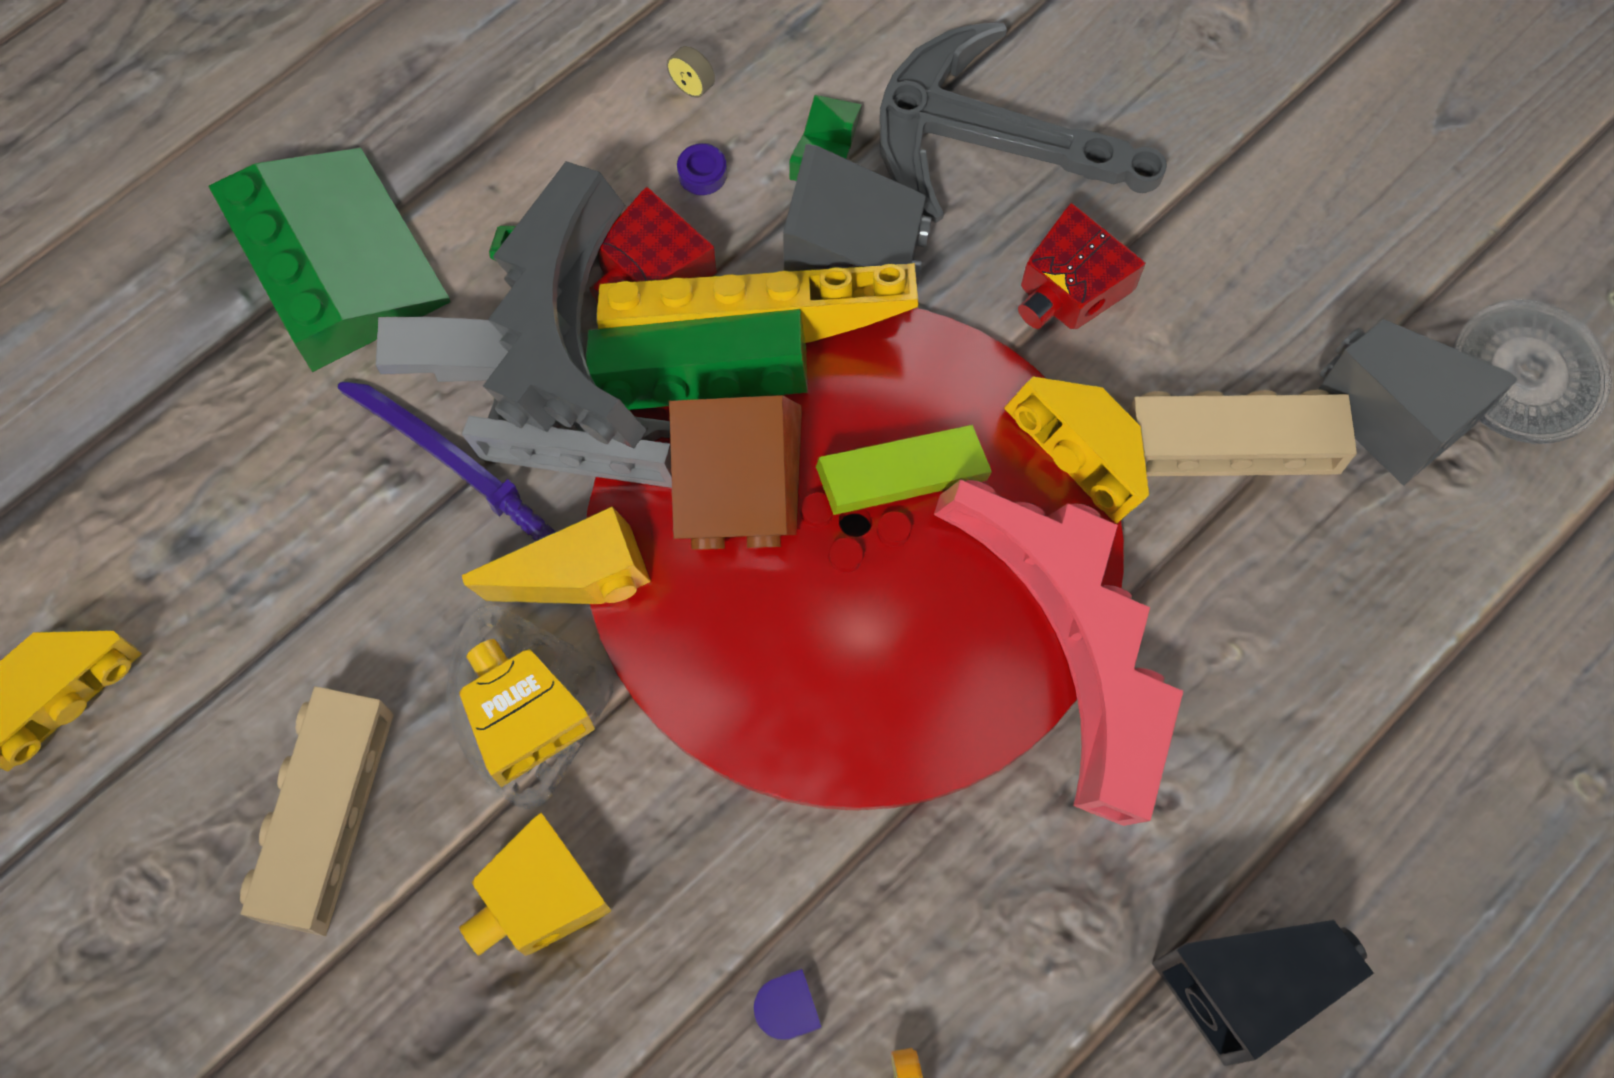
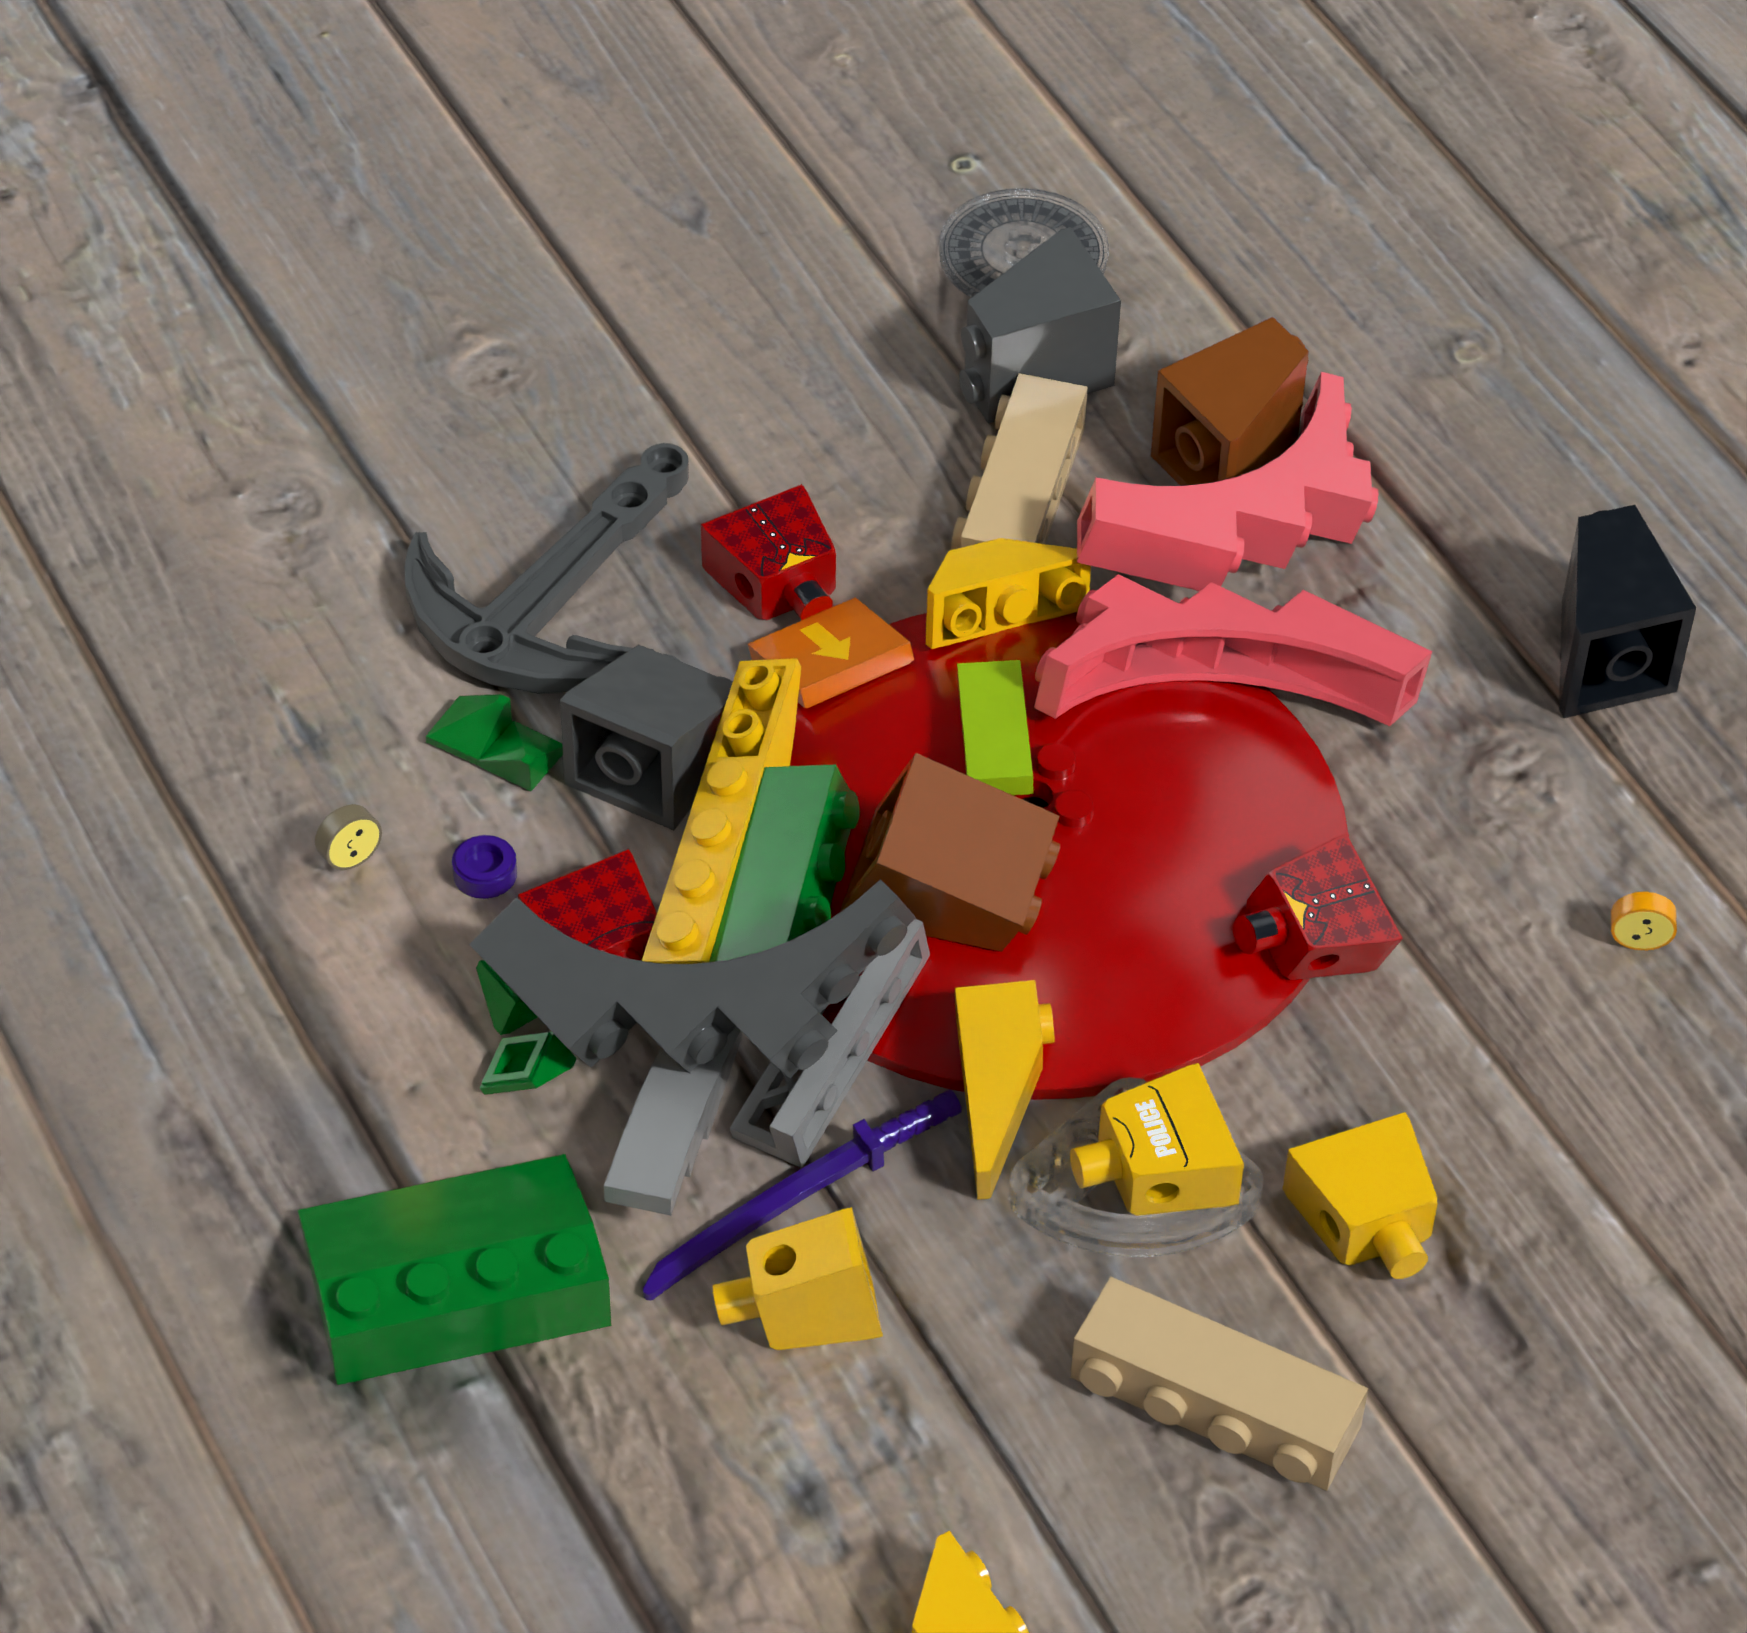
camera: 75 degrees left, 20 degrees down
(328, 469) = (805, 1285): none -> yellow torso
(786, 1007) = (1543, 1012): dark purple tile -> none
(806, 783) = (1319, 915): none -> red torso
(983, 337) = (836, 650): none -> orange tile
(1202, 580) = (1207, 529): none -> coral arch
(1380, 585) = (1230, 405): none -> dark orange slope

